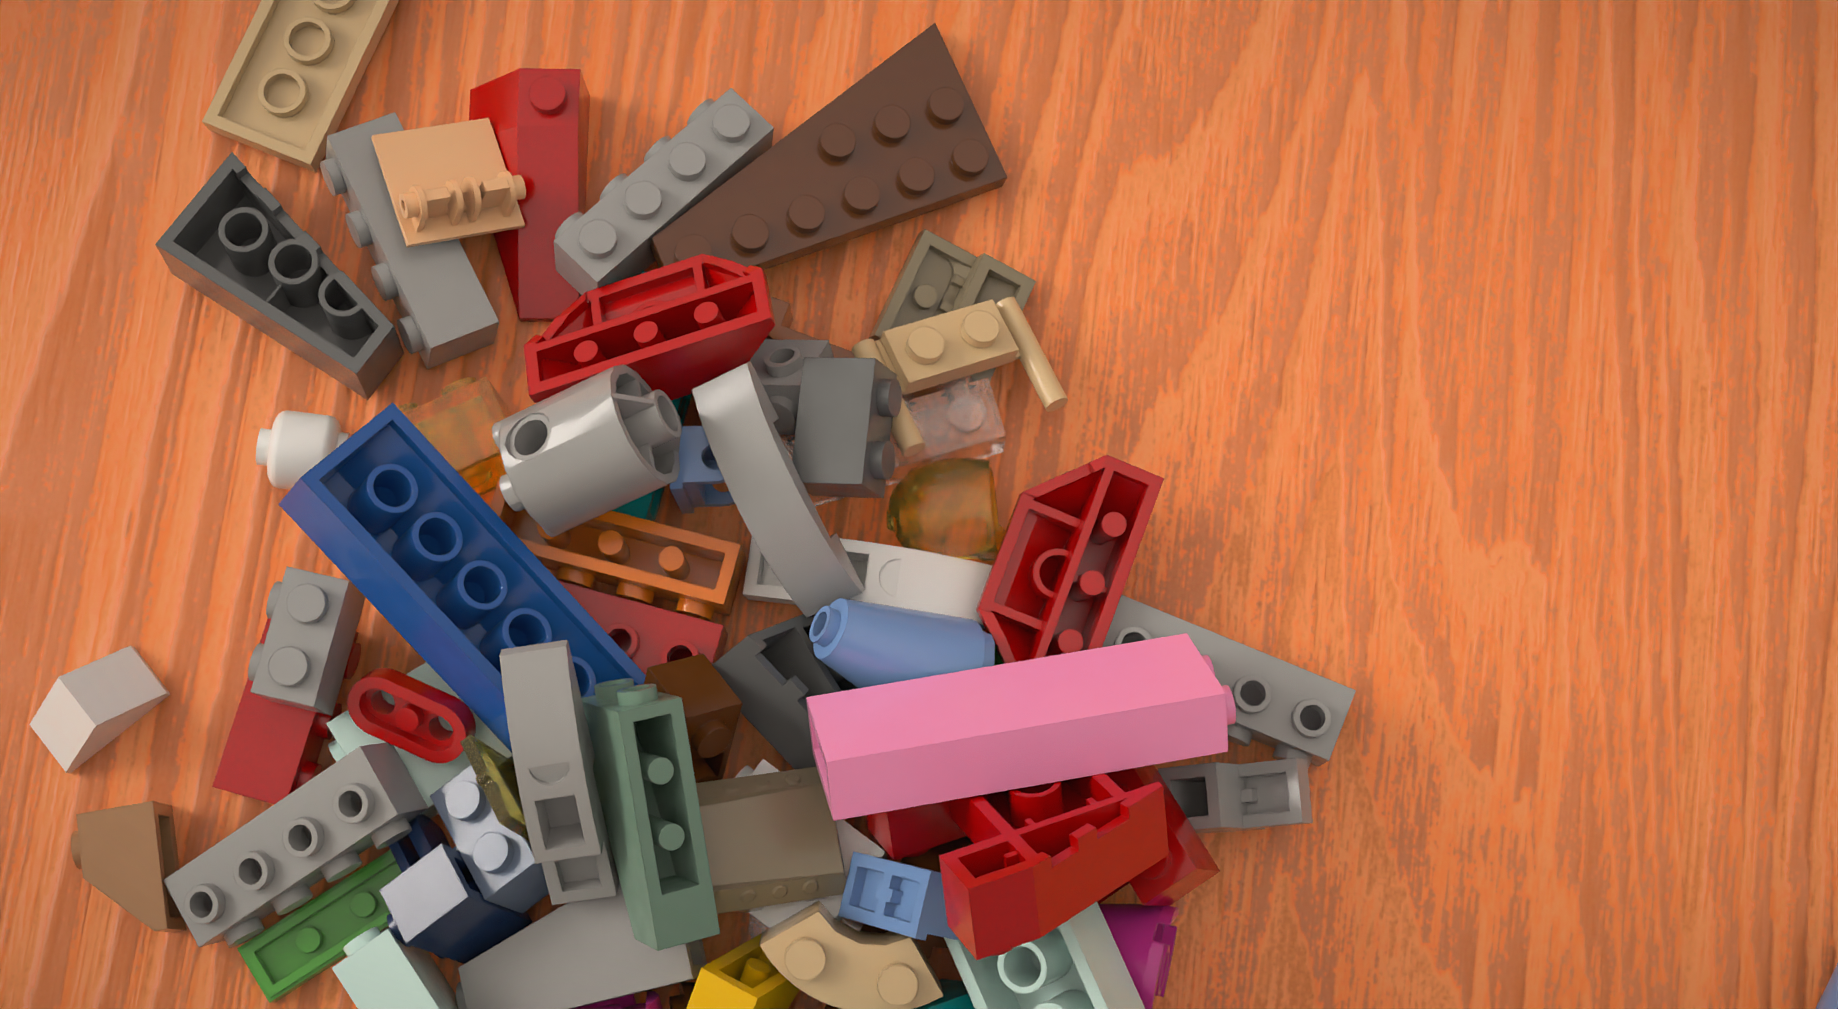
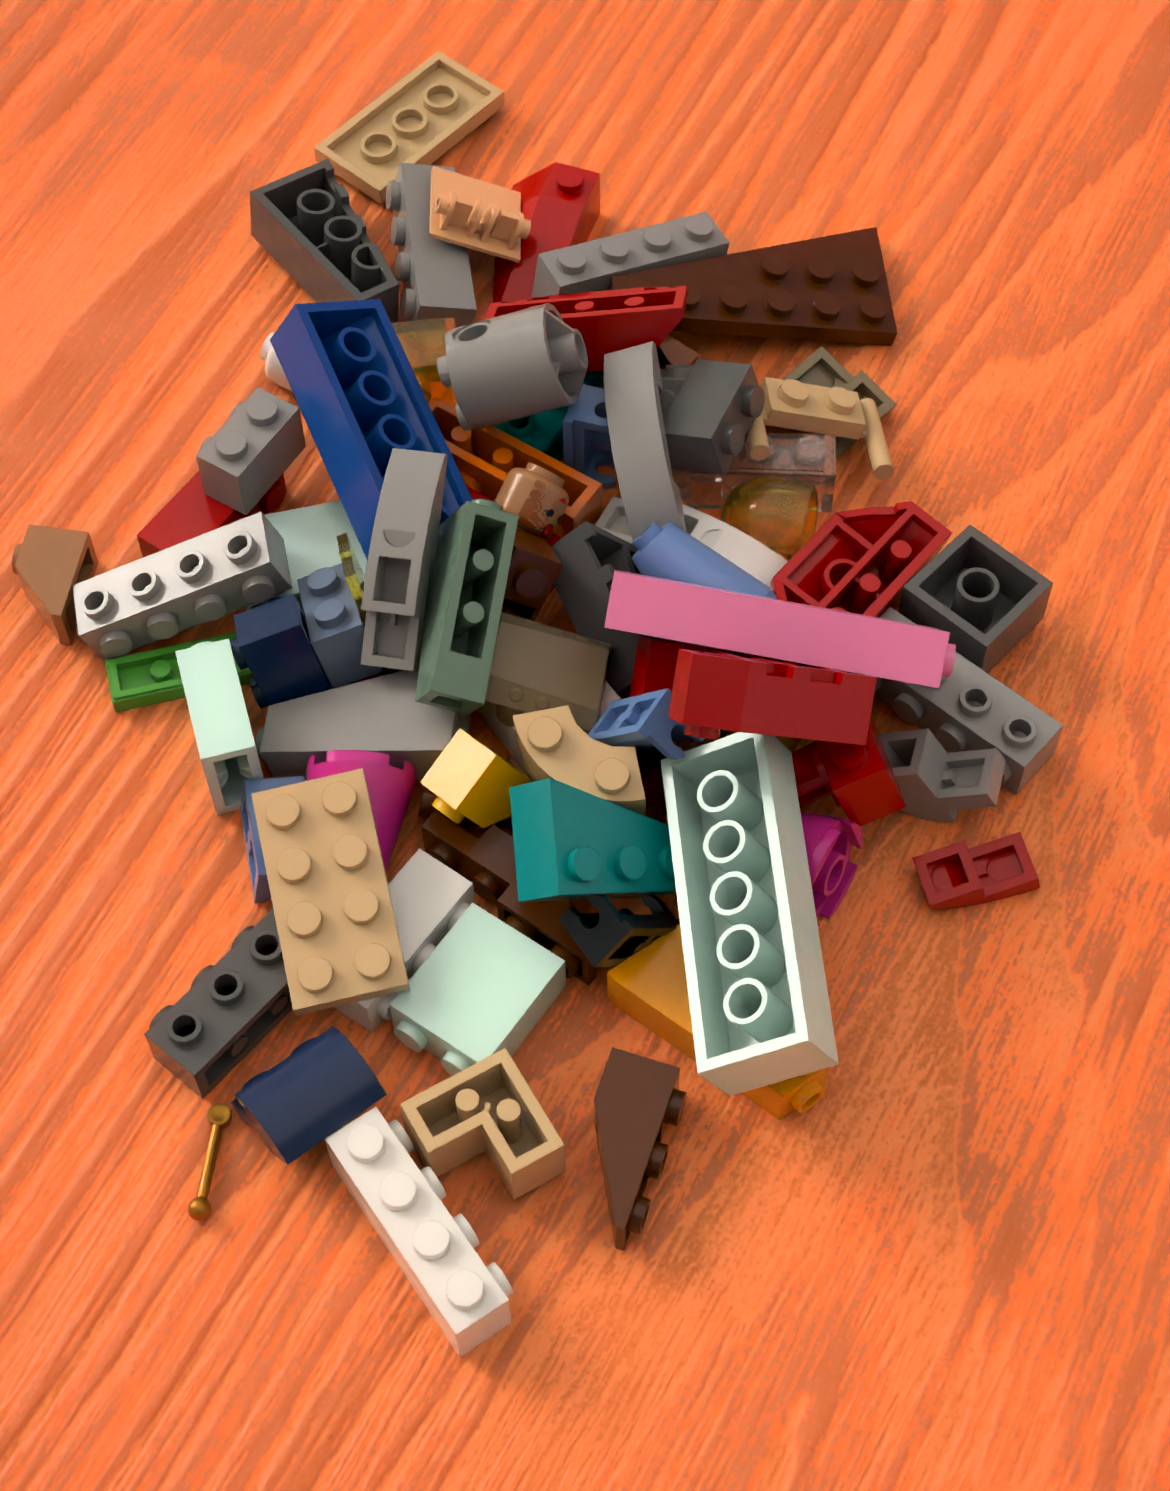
camera: 20 degrees right, 20 degrees down
(96, 705) = (72, 475): white slope -> none
(414, 718) = (309, 522): red plate -> none
(670, 613) = (535, 497): none -> medium nougat head
(1211, 550) = (977, 596): none -> dark grey brick
(1305, 890) = (976, 875): none -> red slope

